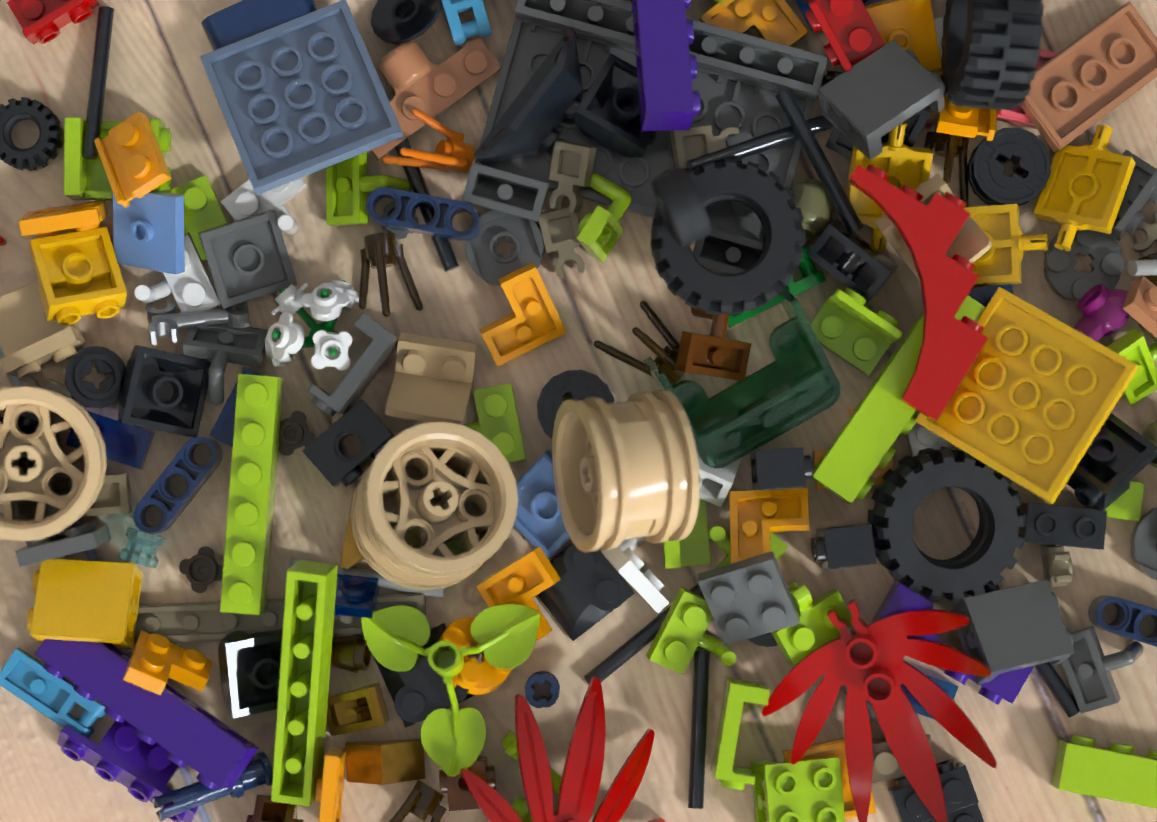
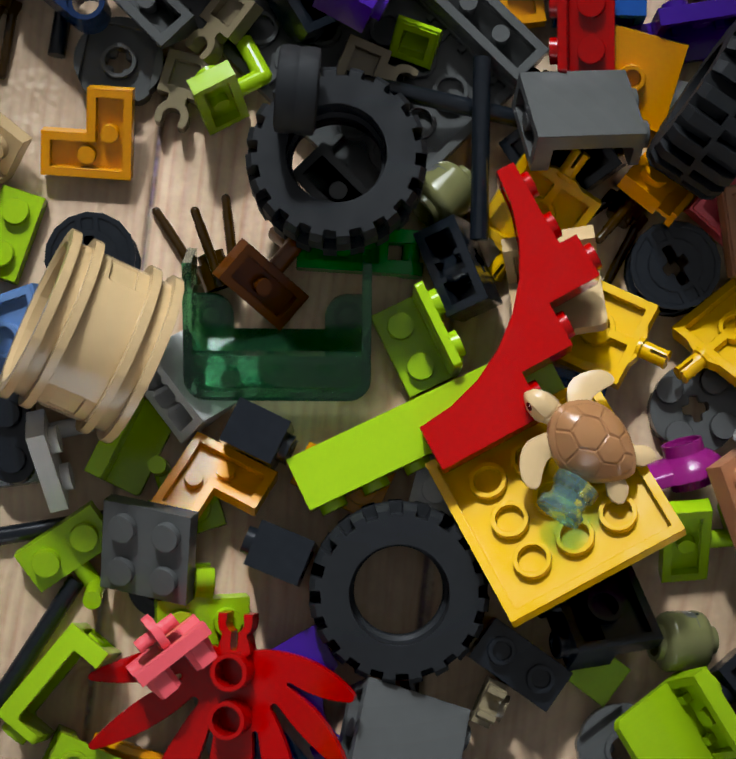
camera: 25 degrees right, 5 degrees down
(722, 106) = (415, 41): none -> lime slope
(805, 662) = (164, 649): none -> coral hips
(1025, 340) = (582, 437): none -> animal
(1040, 390) = (567, 498): none -> clear light blue wheel

